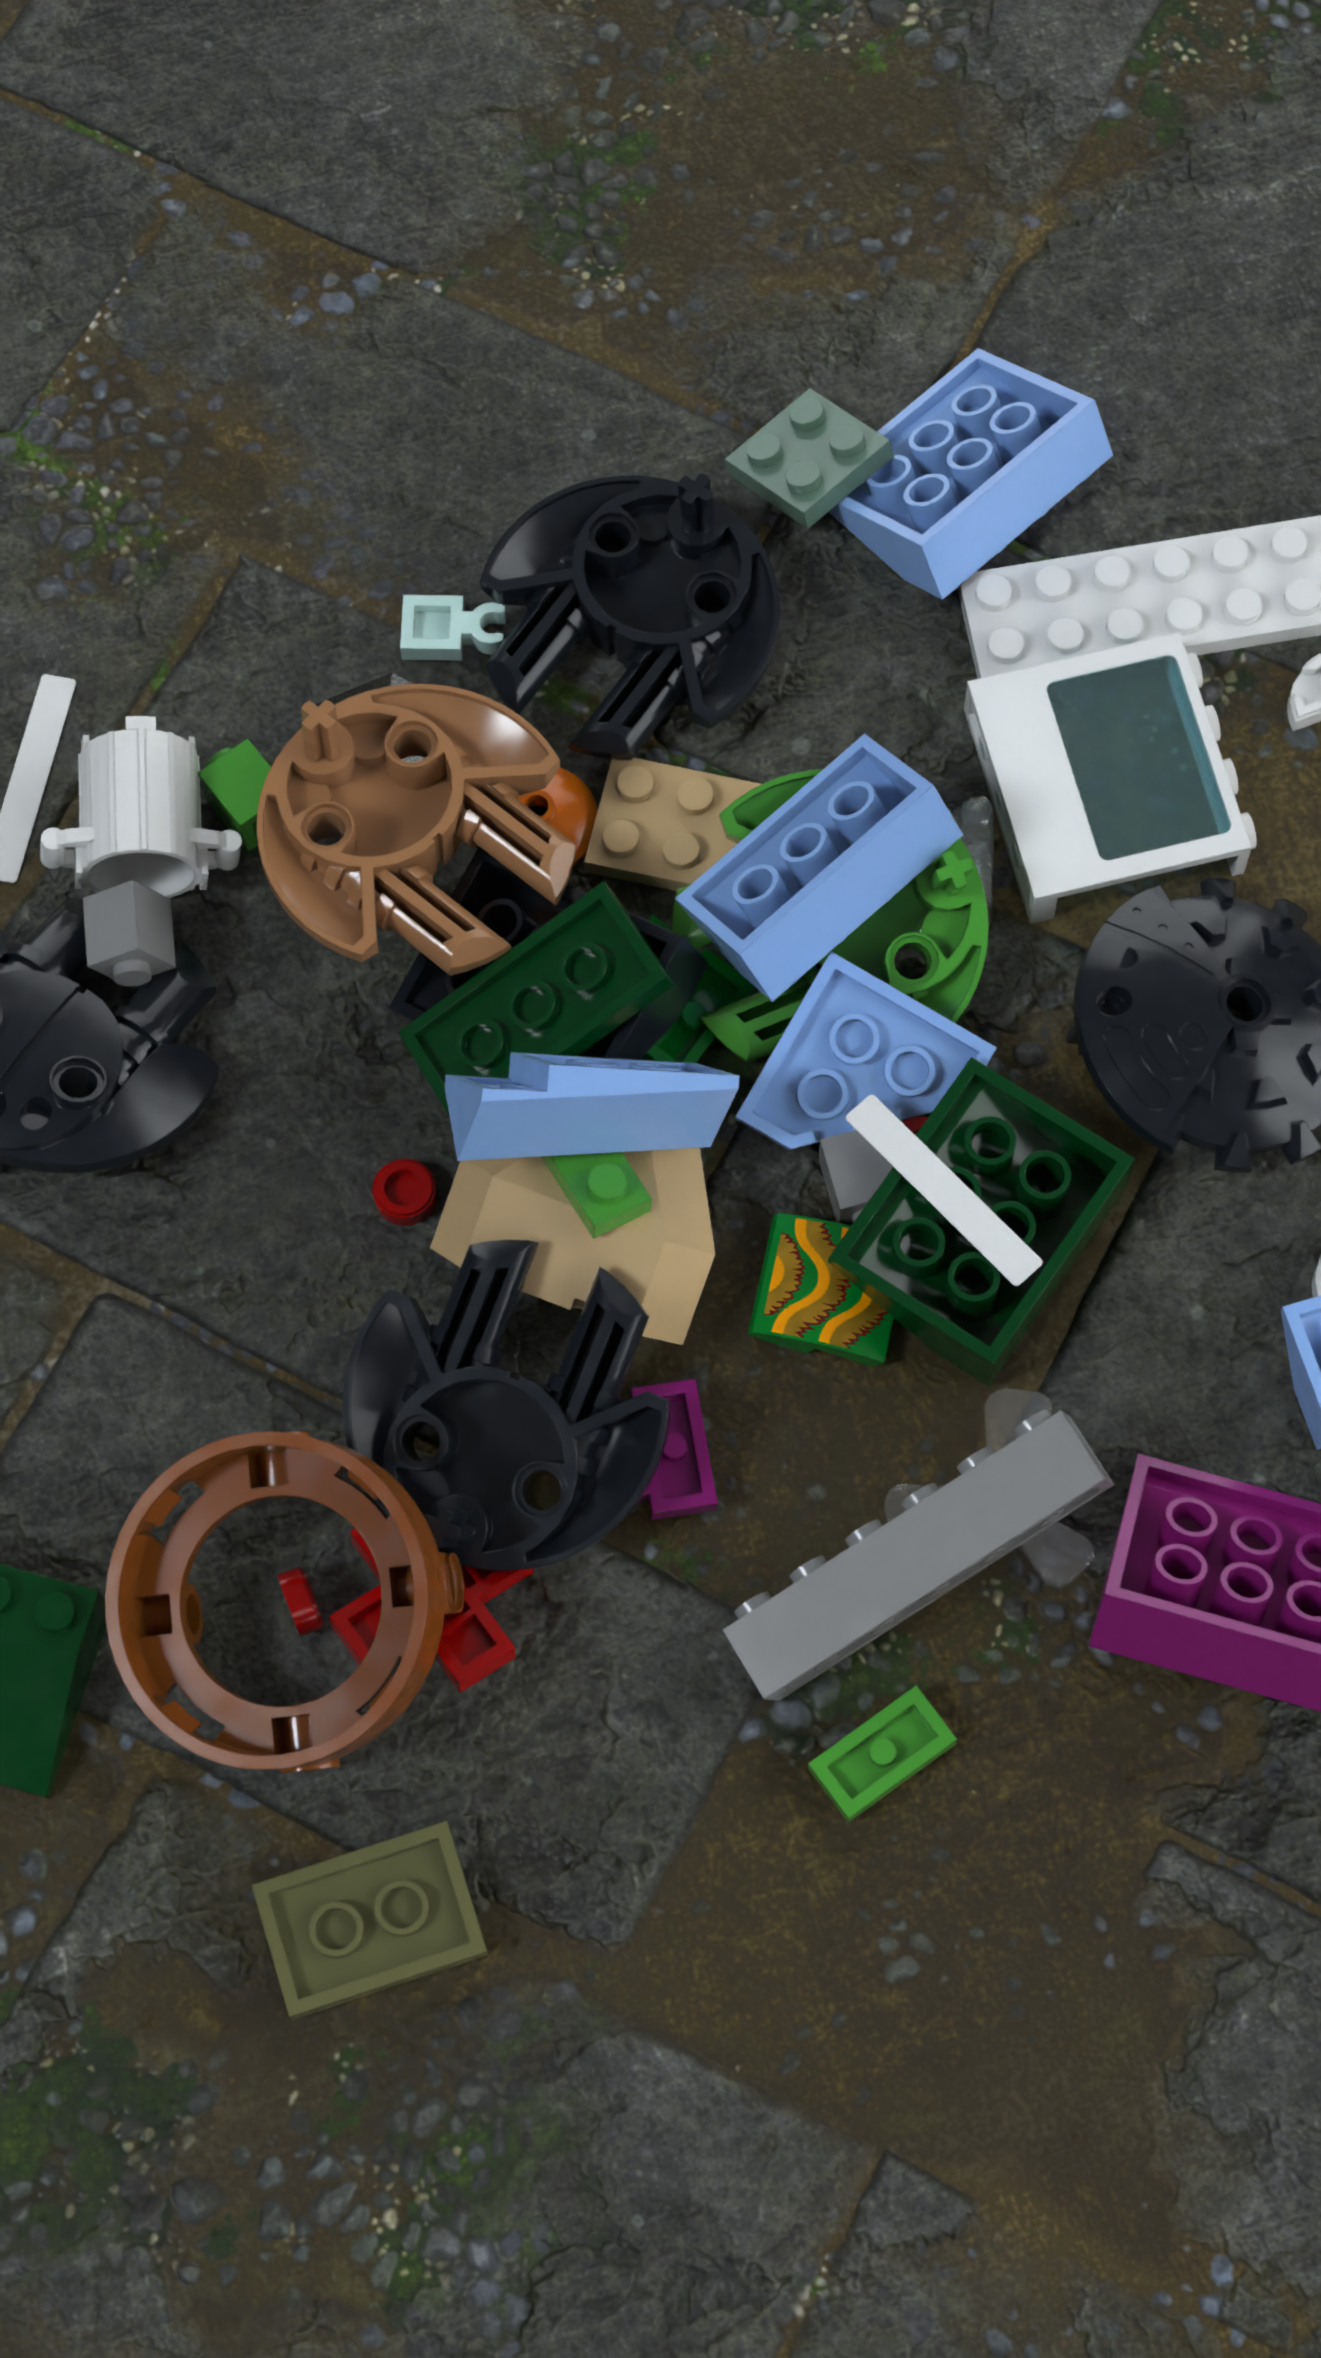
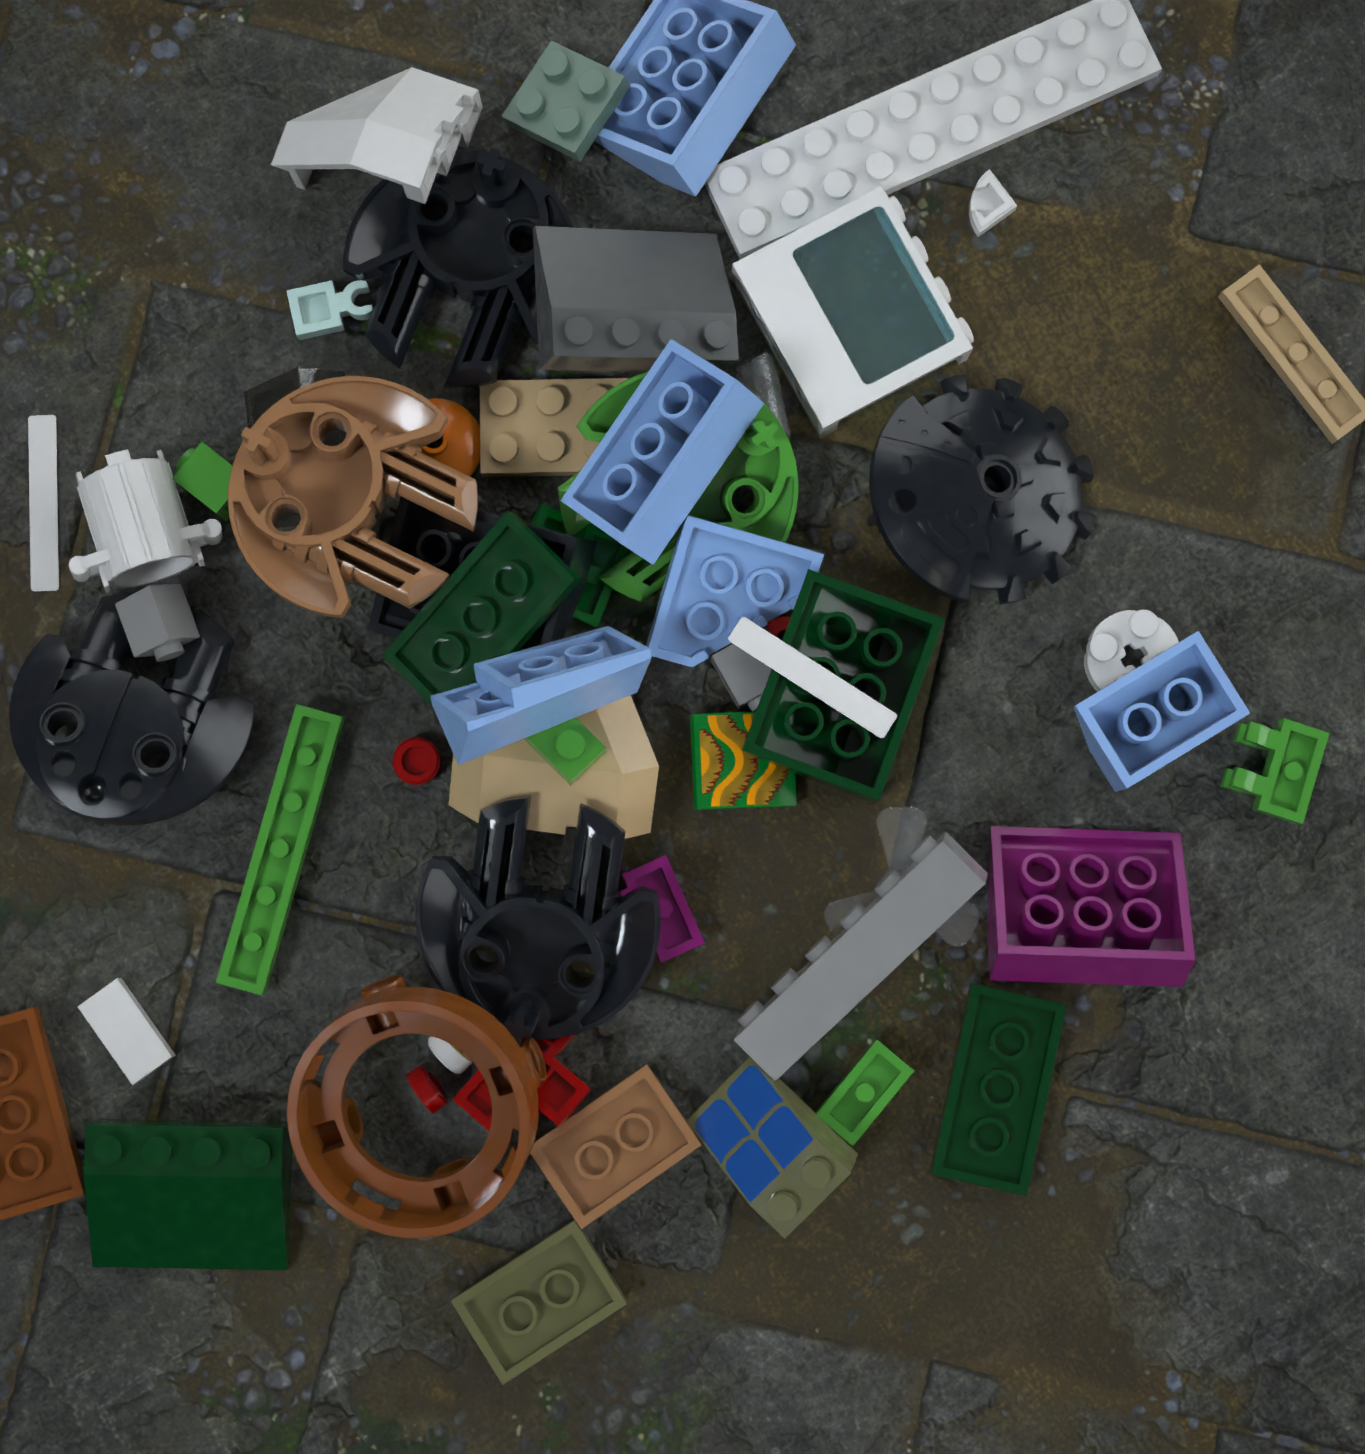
camera: 20 degrees left, 15 degrees up
(197, 1257) = (280, 850): none -> bright green plate
(344, 1560) = (449, 1055): none -> white tile
(527, 1739) = (614, 1146): none -> medium nougat plate
(603, 432) = (391, 129): none -> white panel
(739, 1788) = (772, 1146): none -> slope
(806, 682) = (623, 295): none -> dark grey slope
(1065, 1796) = (998, 1089): none -> dark green plate

